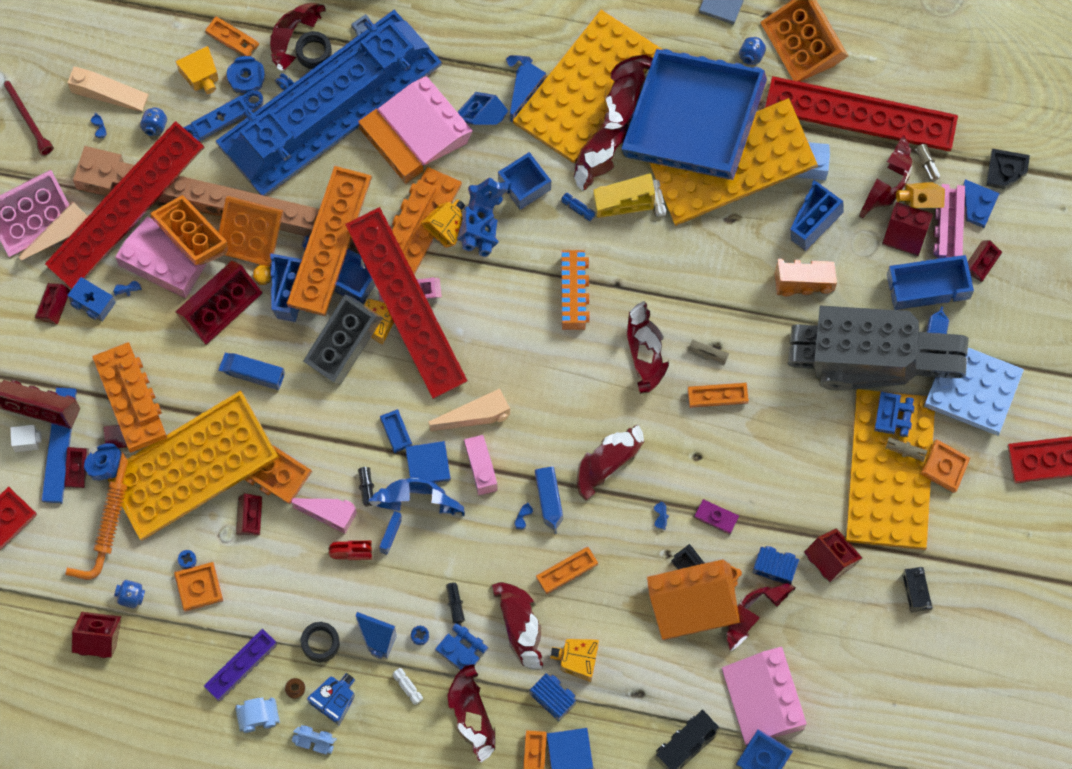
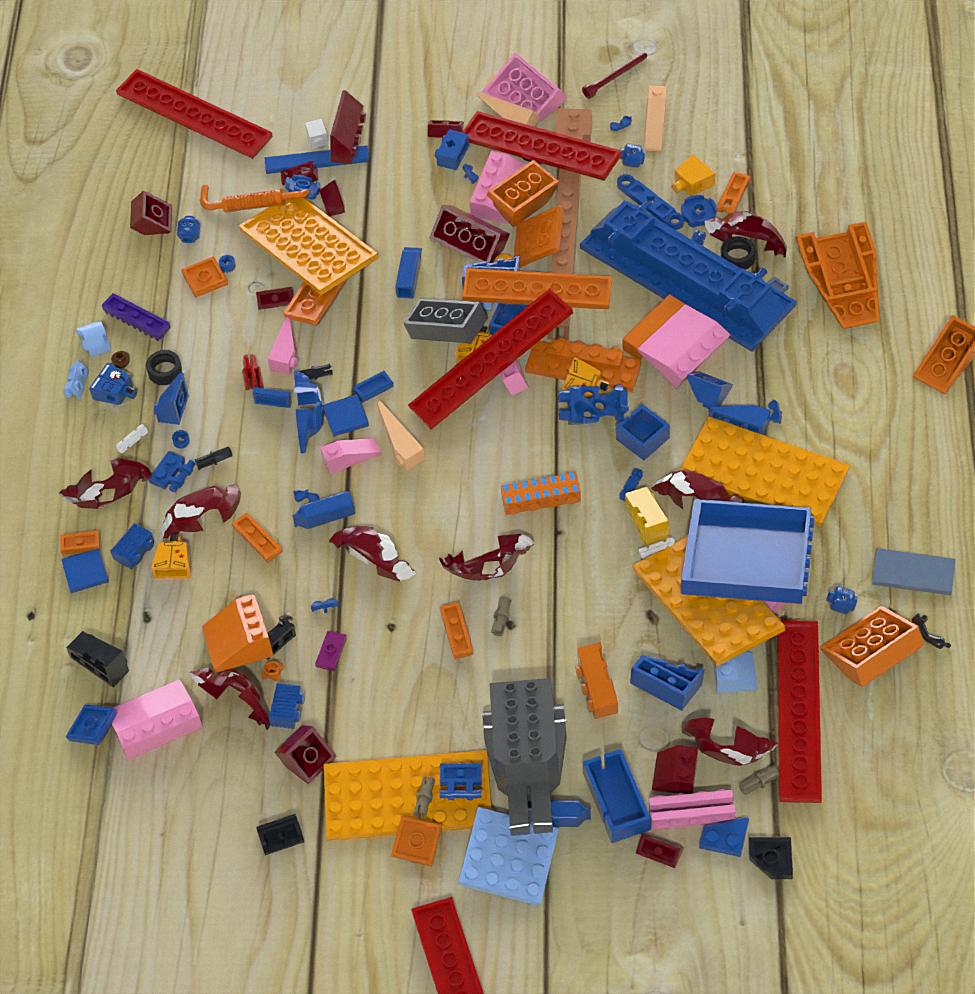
camera: 85 degrees right, 15 degrees down
(130, 396) = (364, 190): orange plate -> none
(621, 100) = (736, 488): dark red animal -> none
(922, 195) = (712, 770): light orange torso -> none

